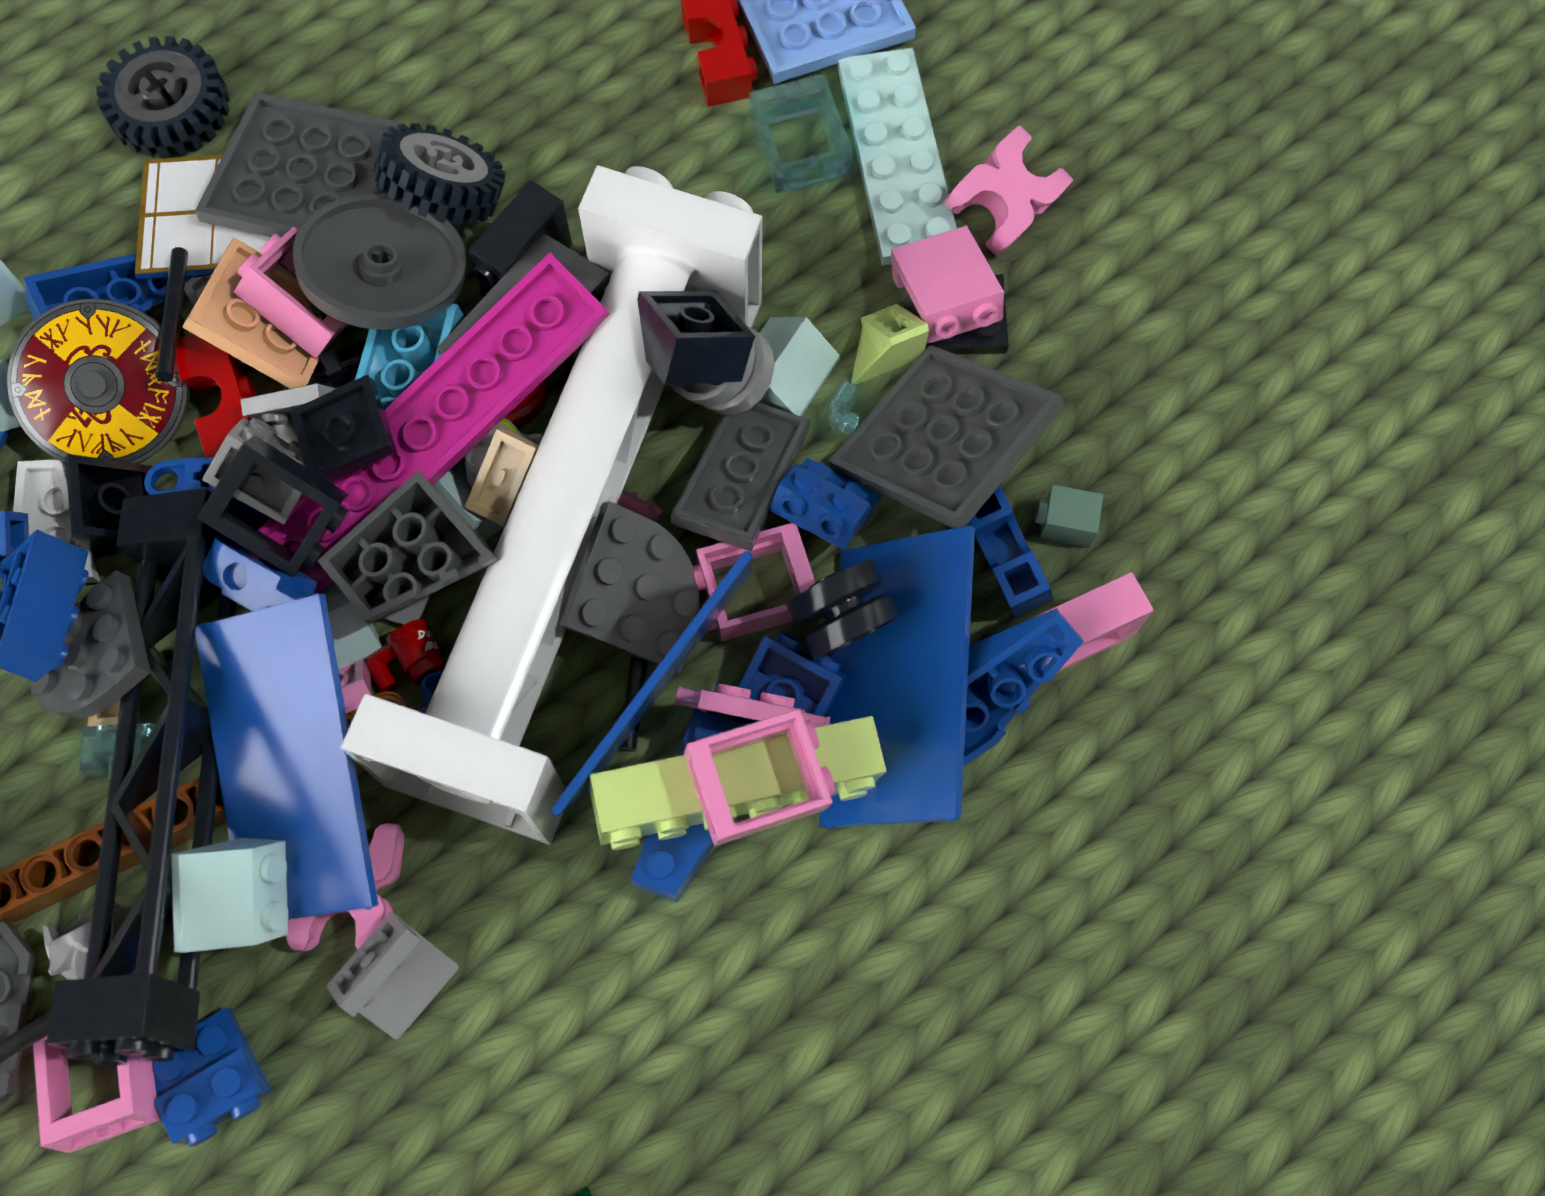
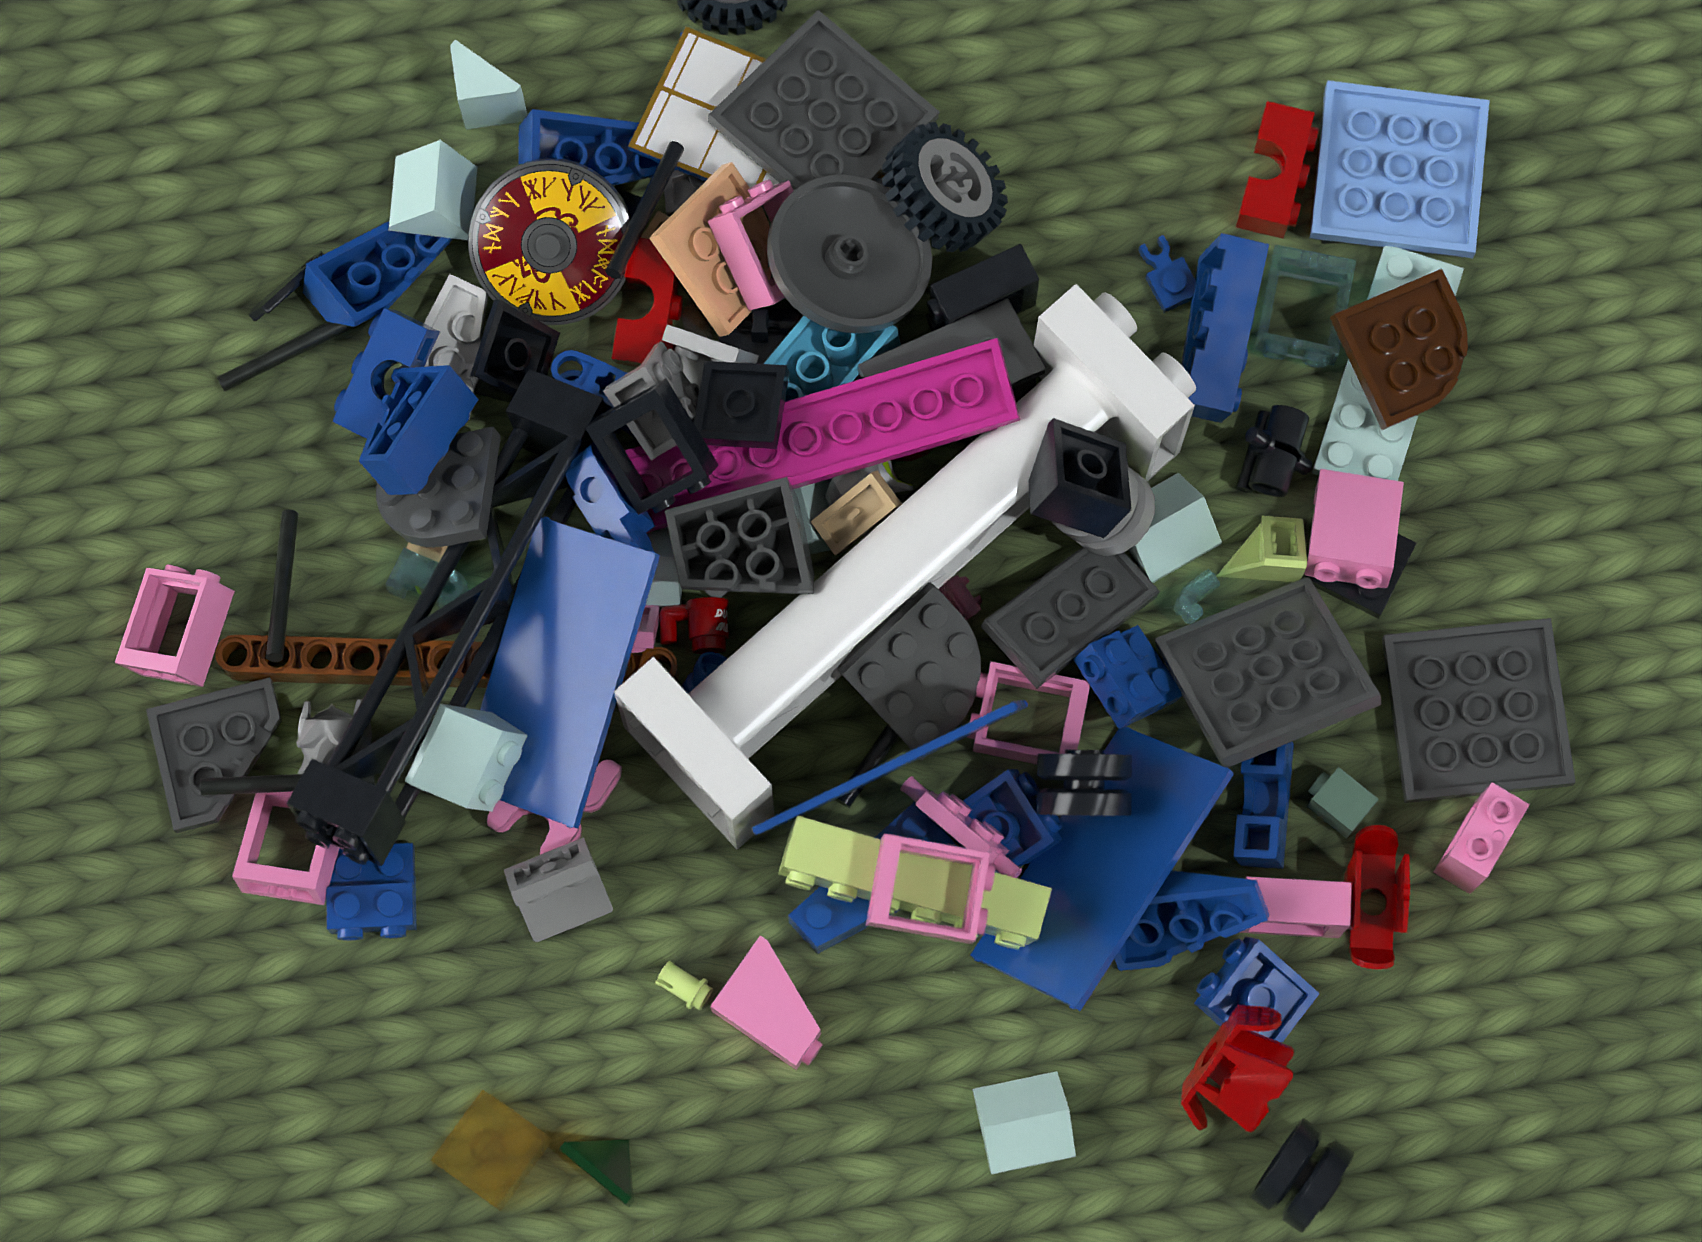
camera: 30 degrees right, 5 degrees up
(565, 1002) = (684, 985): none -> yellowish green pin
(658, 979) = (768, 1007): none -> bright pink slope
(678, 166) = (1170, 280): none -> blue plate
(736, 161) = (1221, 323): none -> blue wedge
(842, 257) = (1274, 451): none -> black pin
(904, 119) = (1405, 346): none -> reddish brown plate
(956, 955) = (1024, 1122): none -> light aqua slope
(1008, 190) = (1467, 465): bright pink piece -> none
(1096, 724) = (1255, 978): none -> blue plate
(1124, 554) = (1374, 868): none -> red piece
(1128, 793) = (1244, 1065): none -> red piece
(1136, 383) = (1478, 710): none -> dark grey plate
(1208, 484) = (1481, 838): none -> bright pink window
(1241, 864) = (1307, 1178): none -> black wheel

